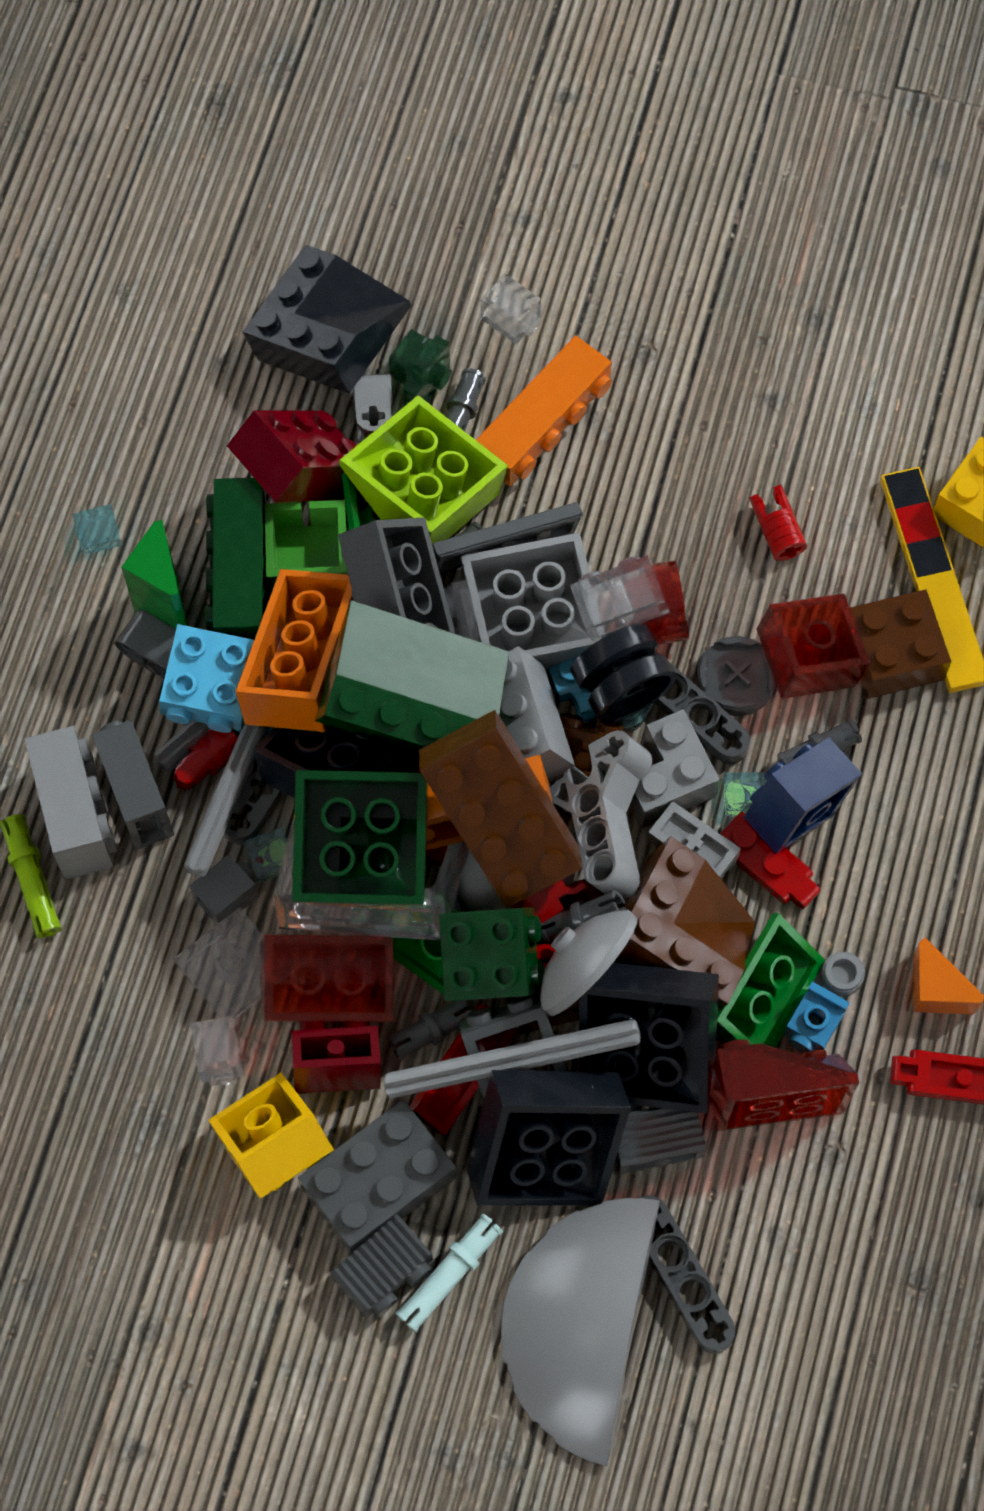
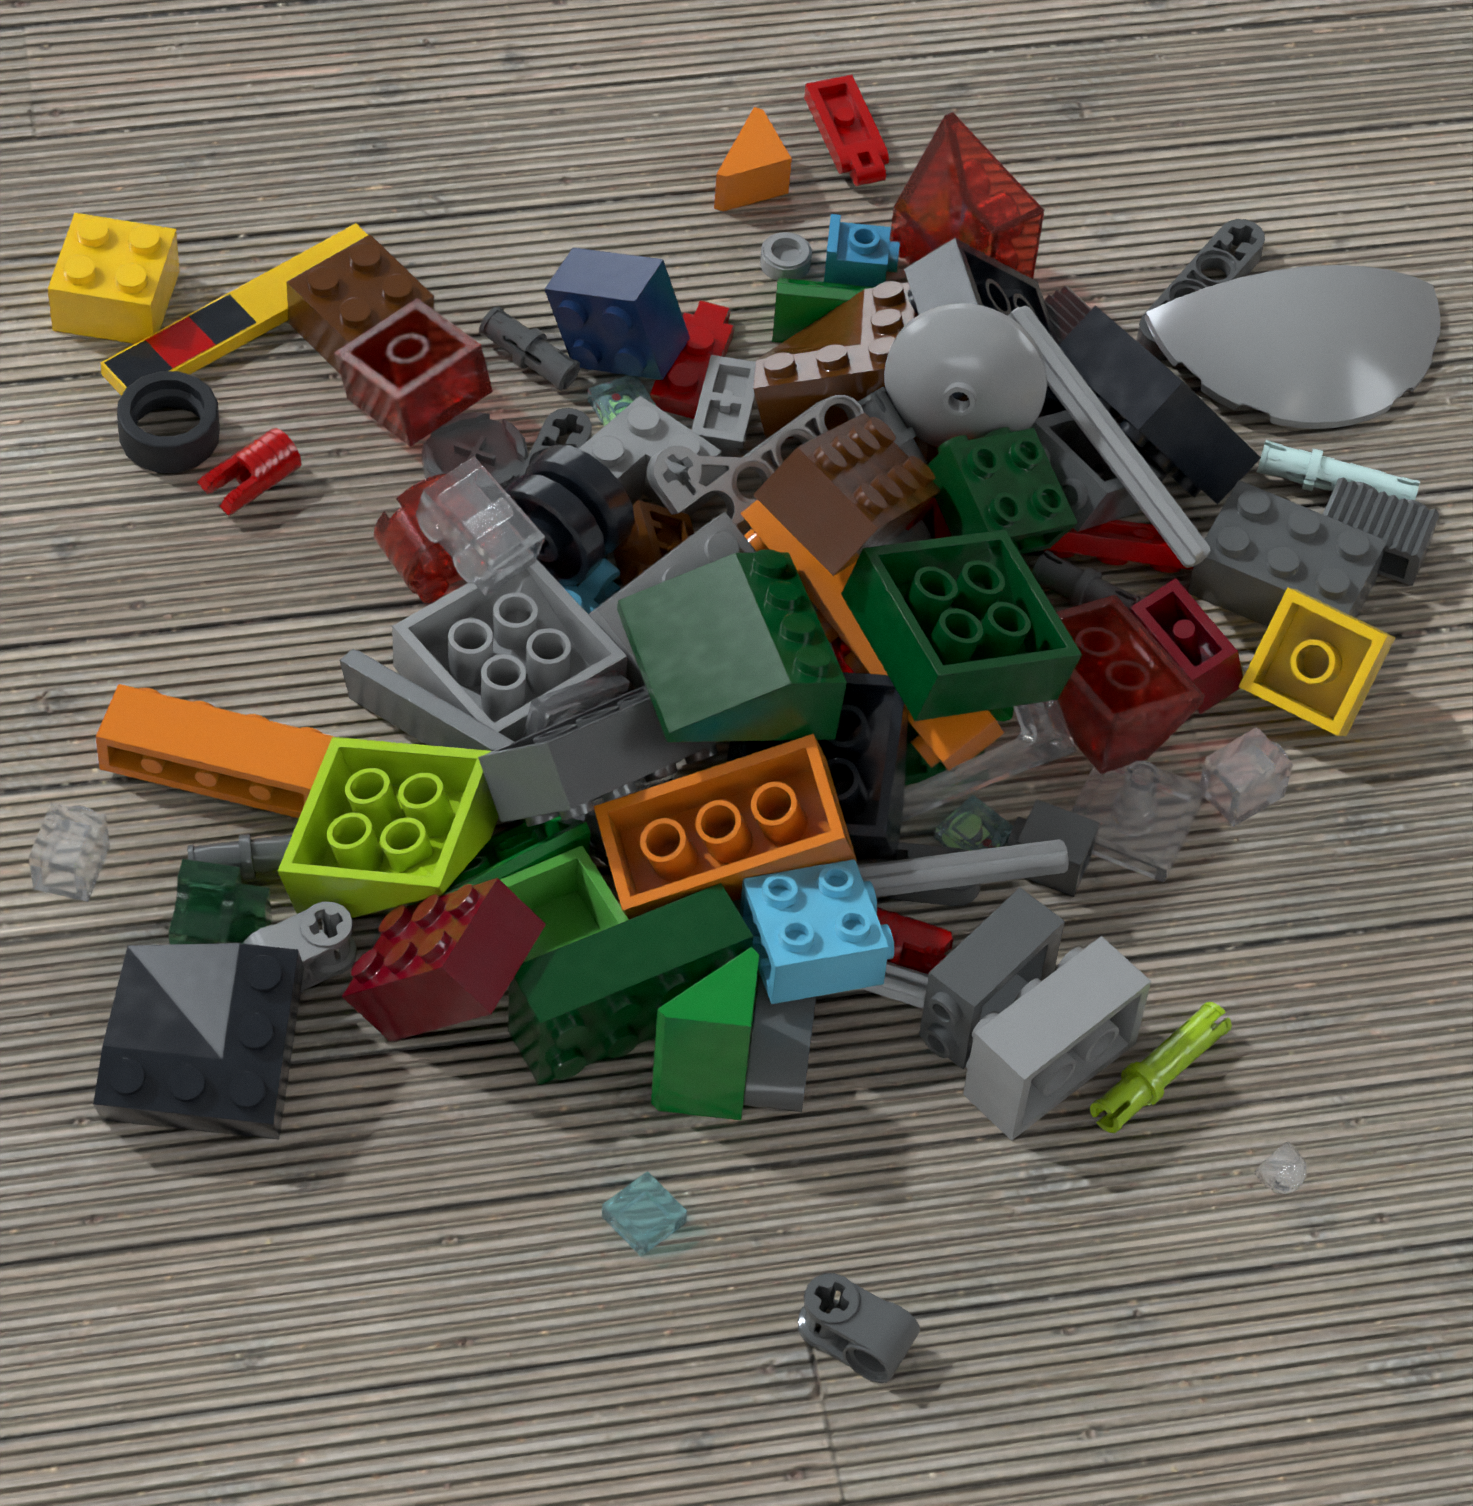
camera: 120 degrees left, 15 degrees down
(853, 462) = (161, 391): none -> black tyre

